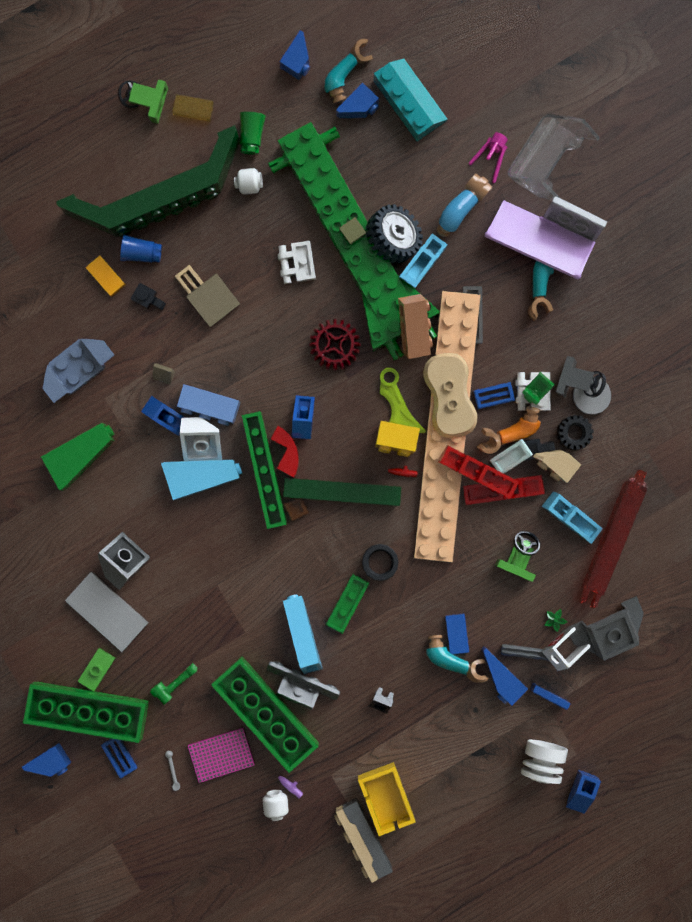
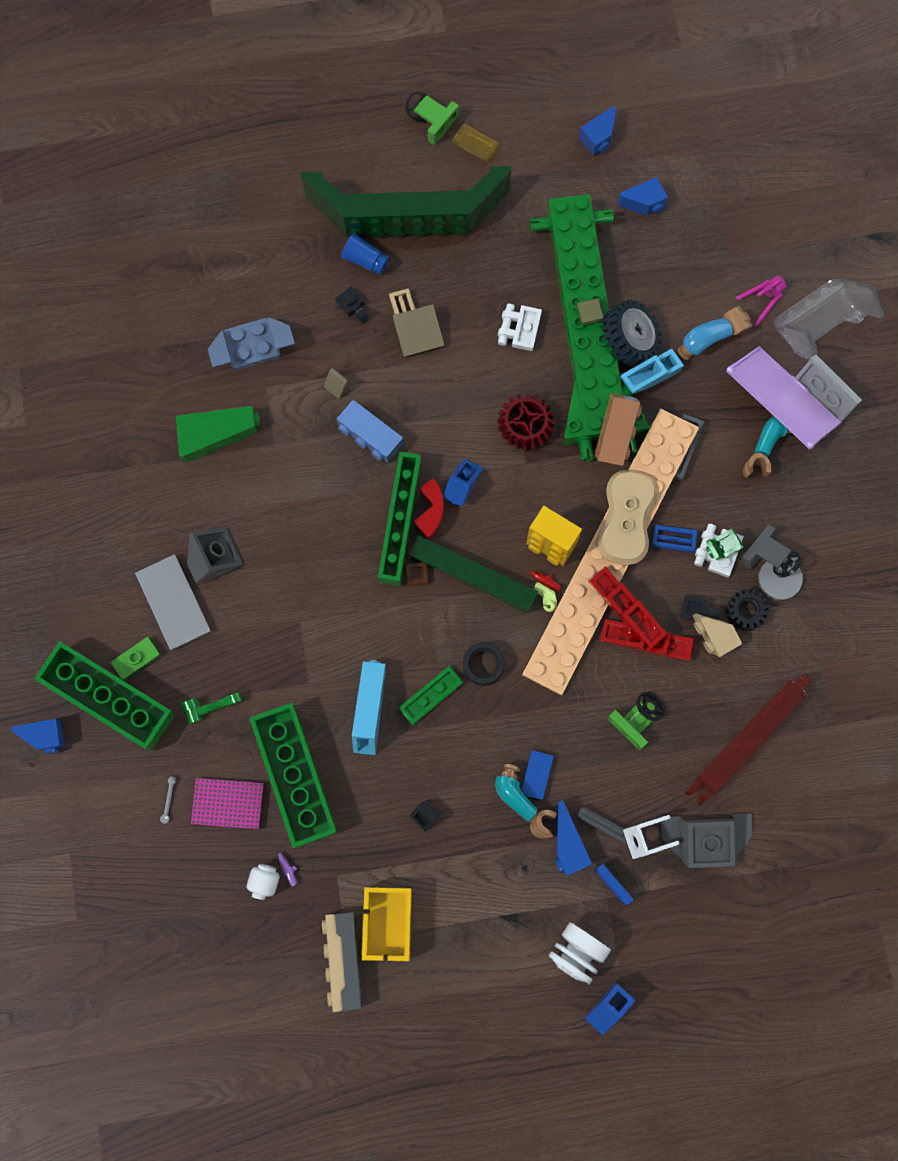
camera: 25 degrees right, 10 degrees down
(105, 276) = (319, 268): light orange tile -> none
(114, 763) = (127, 760): blue tile -> none
(163, 415) = (320, 425): blue slope -> none
(197, 476) = (329, 500): medium azure slope -> none
(199, 440) = (345, 464): white slope -> none
(248, 181) = (502, 230): white head -> none
(251, 132) = (525, 183): green plant -> none
(300, 688) = (343, 764): dark grey bracket -> none
(335, 78) = (631, 165): piece -> none
(400, 412) = (566, 494): lime piece -> none
(409, 98) = (698, 212): teal slope -> none
(411, 486) = (548, 597): none -> yellowish green arm
(511, 457) = (670, 607): light aqua tile -> none
(524, 428) = (694, 583): piece -> none
(555, 620) = (651, 803): green plant -> none
(572, 517) = (711, 698): medium azure slope -> none

